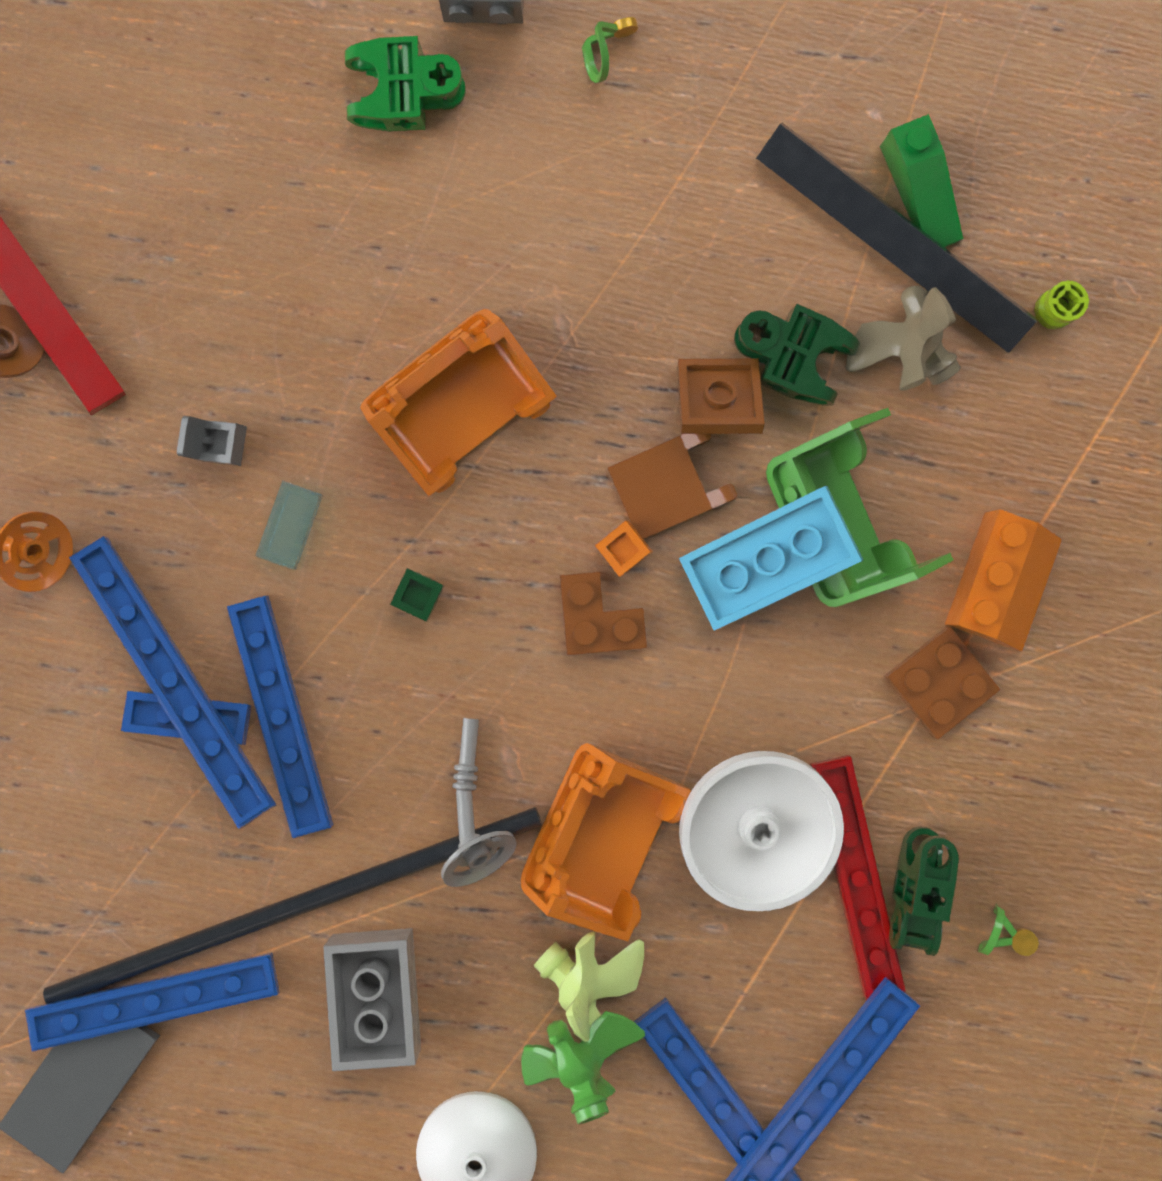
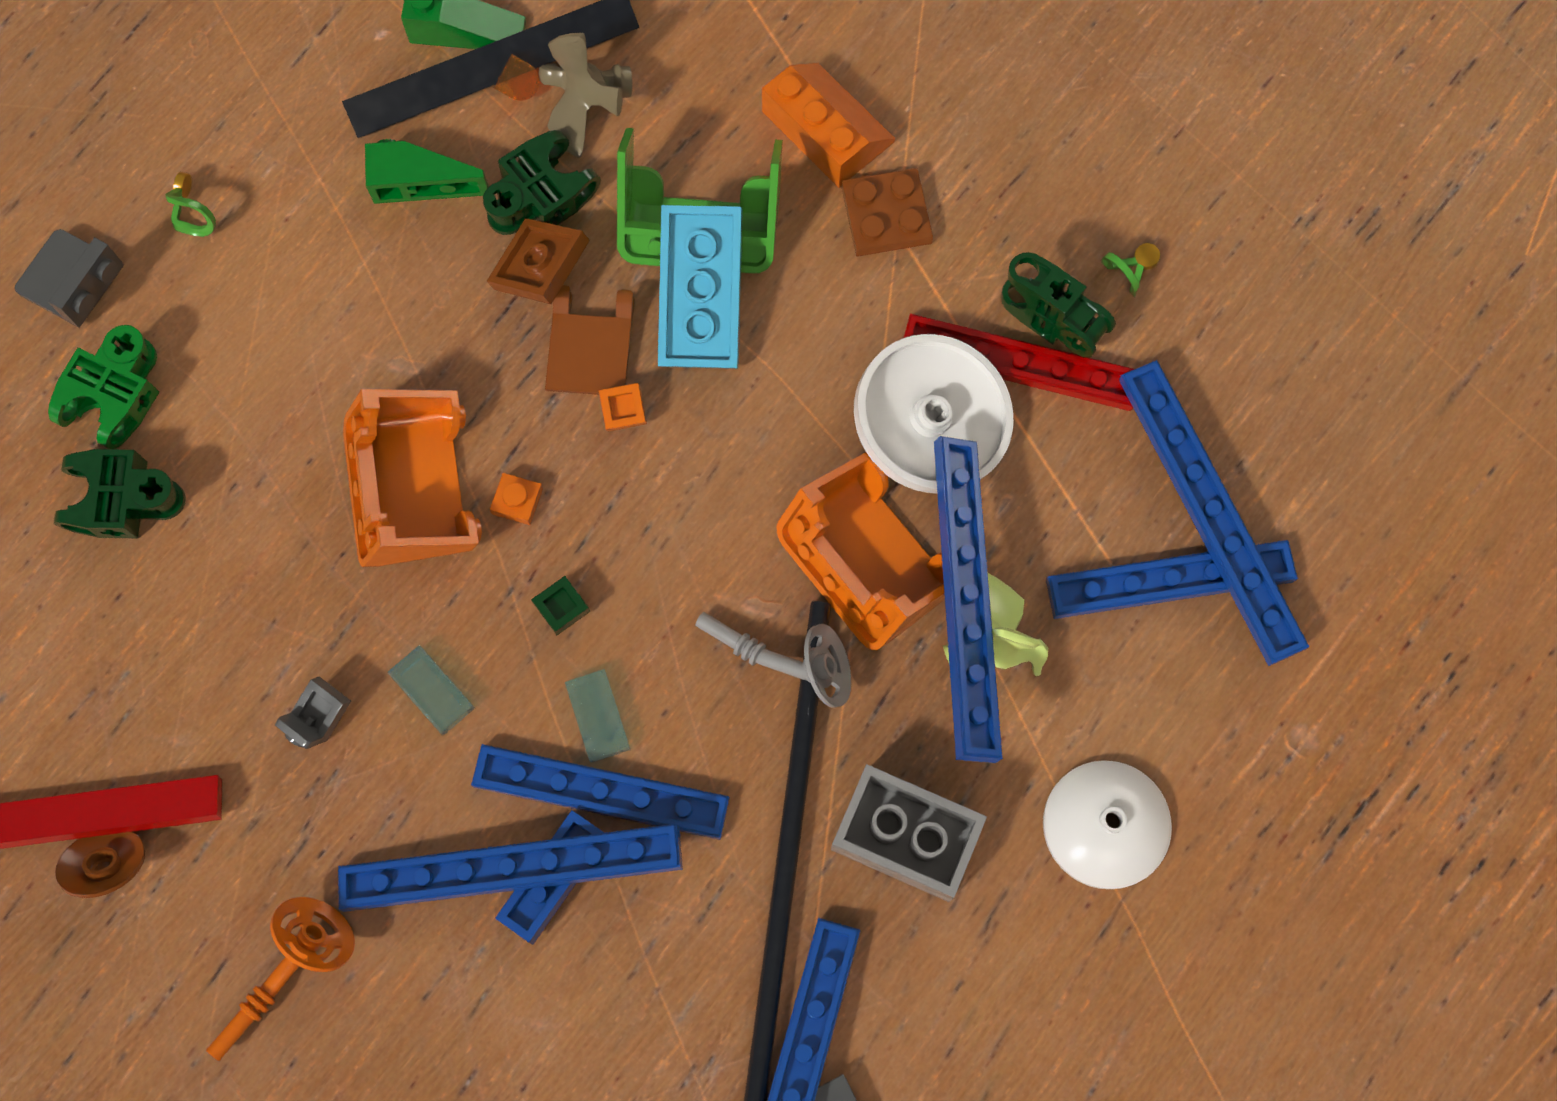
camera: 60 degrees left, 15 degrees down
(311, 155) = (118, 494): none -> dark green piece
(342, 678) = (597, 716): none -> clear light blue tile
(493, 500) = (516, 499): none -> orange plate
(580, 1063) = (1059, 674): bright green animal -> none
(589, 627) = (675, 473): dark orange plate -> none
(595, 956) = (967, 602): none -> blue tile
(744, 225) = (411, 173): none -> green slope
(892, 271) = (518, 79): none -> clear orange tile

